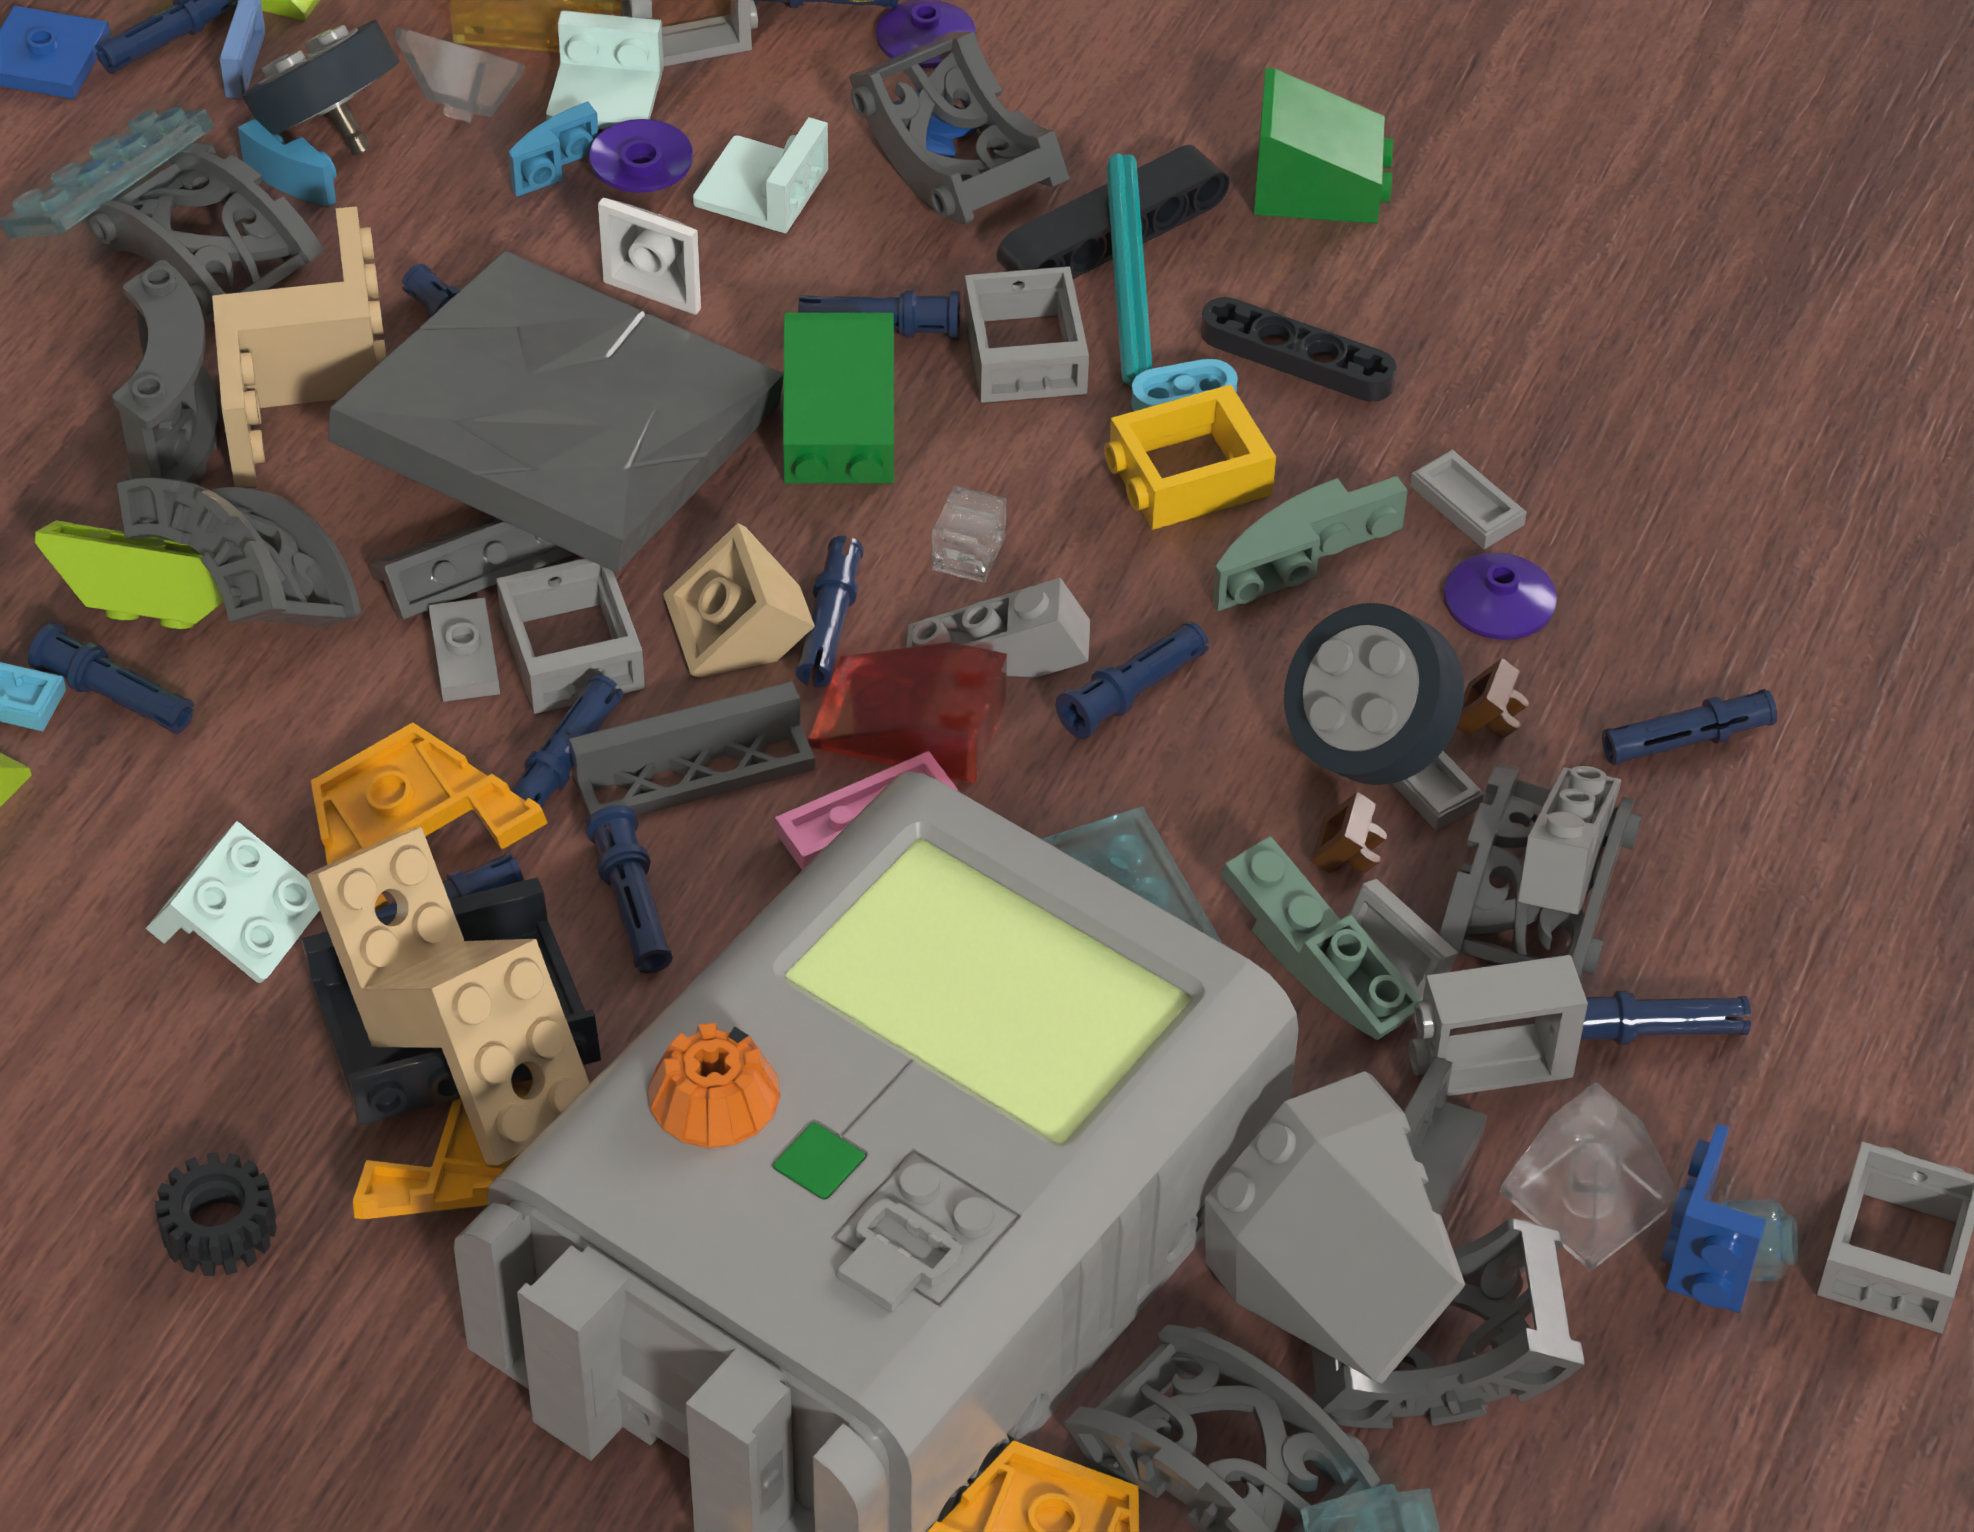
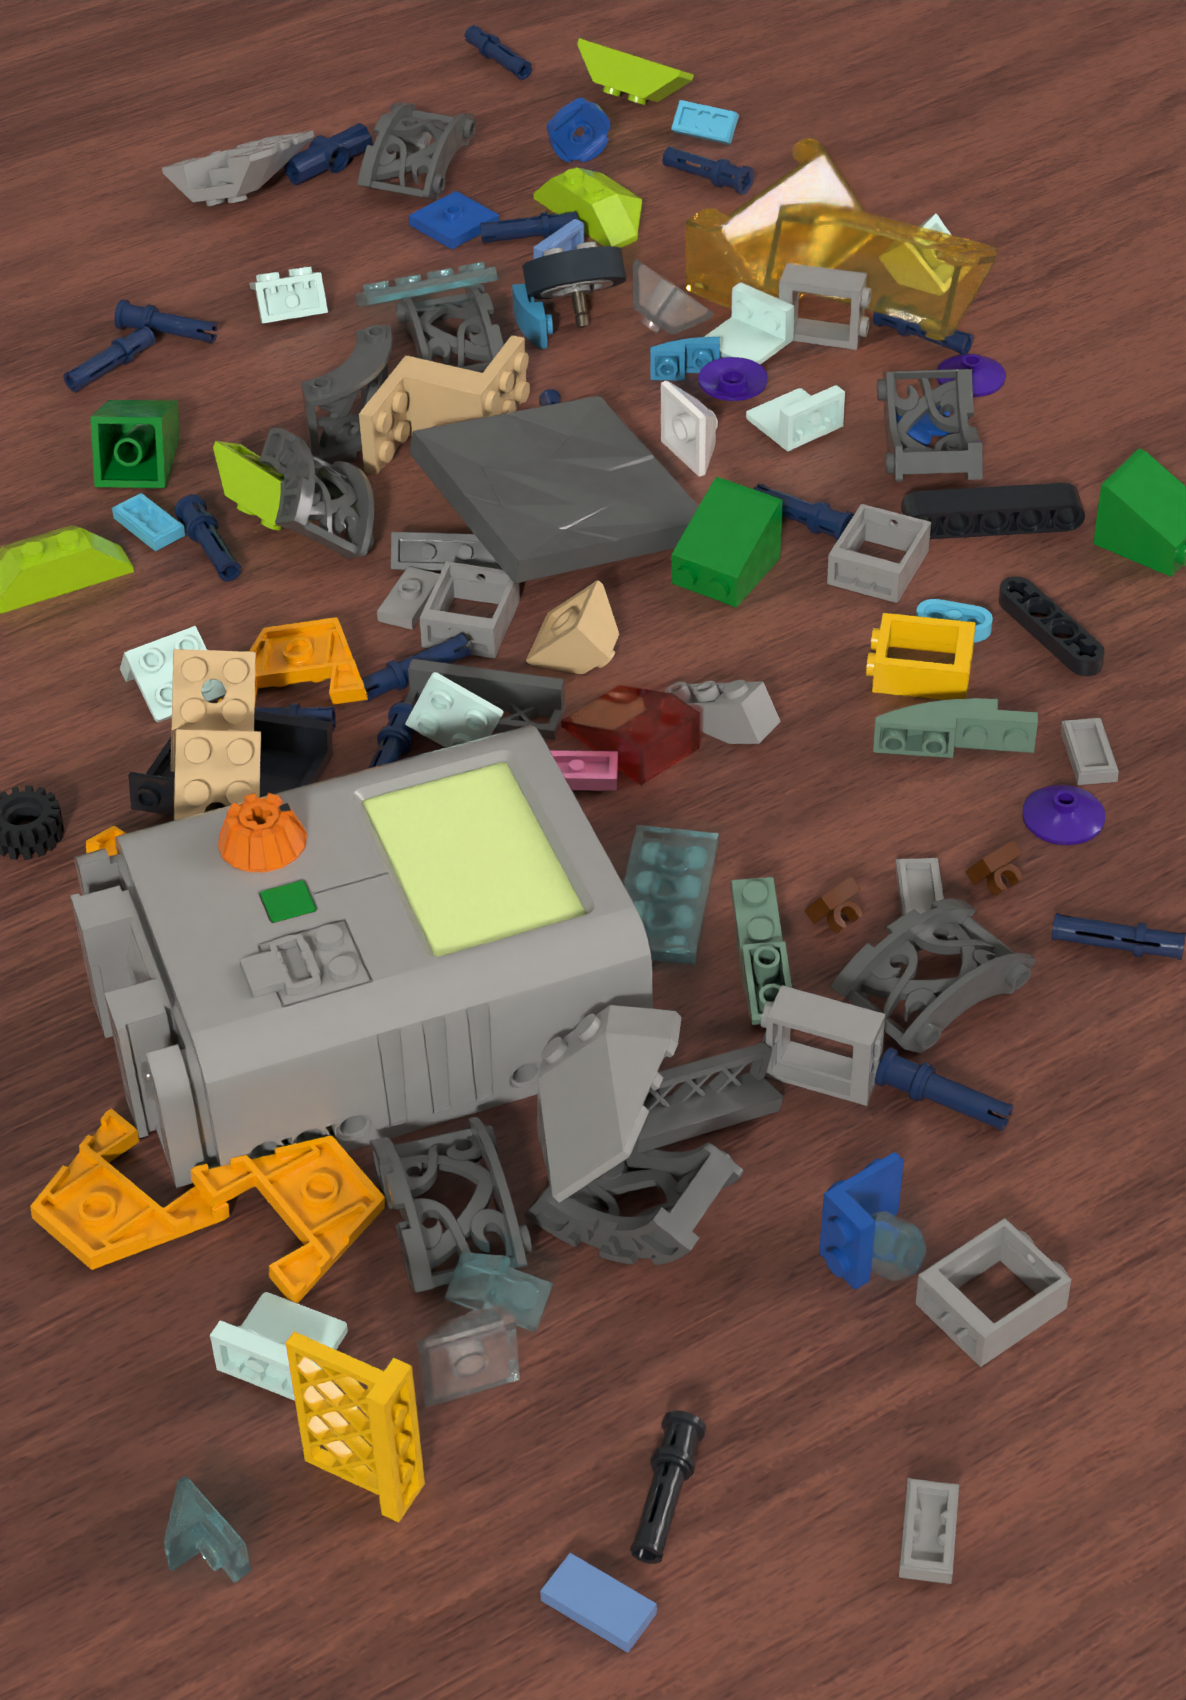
camera: 35 degrees right, 5 degrees down
(699, 798) = (452, 713): none -> light aqua bracket
(834, 593) = (640, 650): dark blue pin -> none
(969, 534) = (748, 647): clear brick -> none
(1114, 689) = (762, 764): dark blue pin -> none
(1128, 266) = (972, 534): teal axle -> none
(1373, 694) = (906, 824): wheel -> none
(1402, 935) = (813, 966): light grey tile -> none
(1568, 839) = (944, 952): light grey slope -> none
(1592, 1177) = (812, 1155): clear slope -> none

